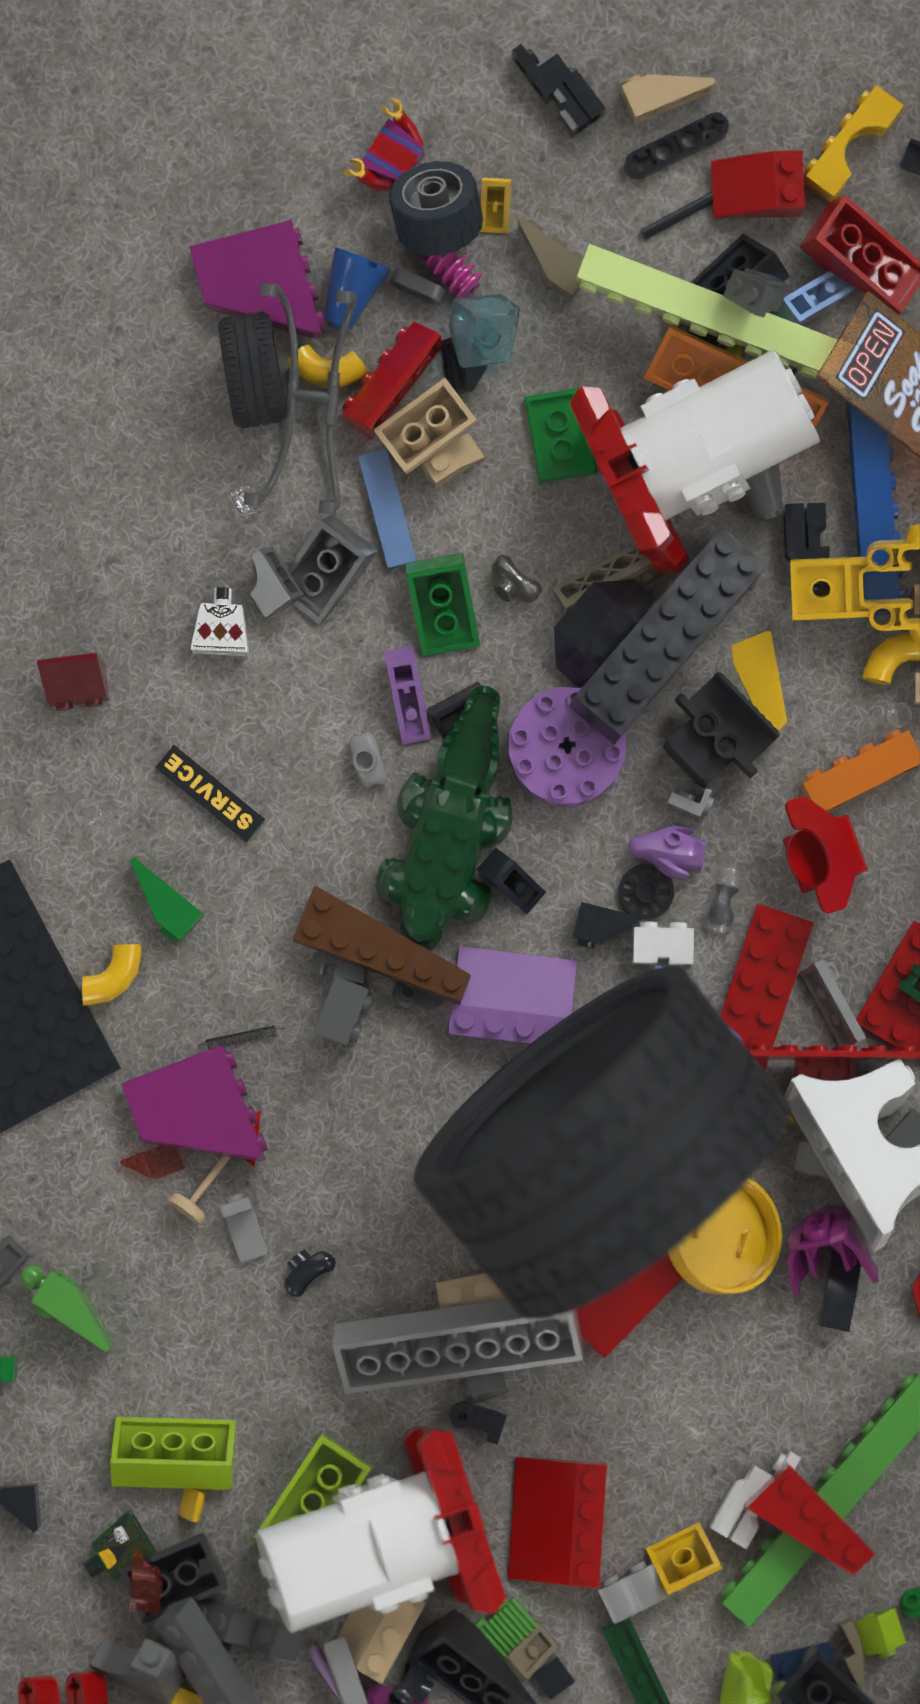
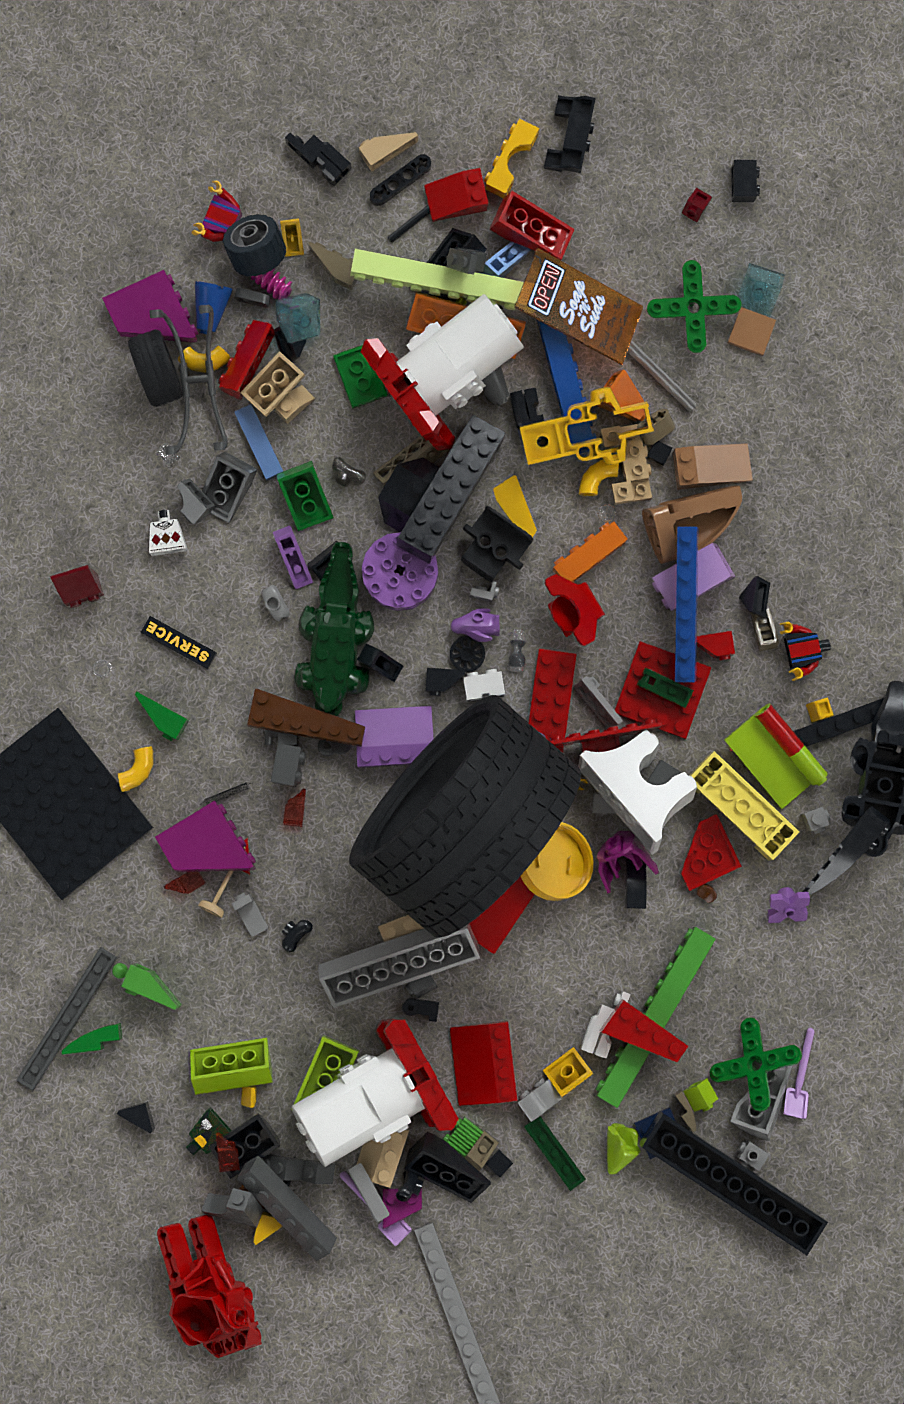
camera: 15 degrees left, 0 degrees up
(341, 1081) = (295, 810): none -> clear red slope

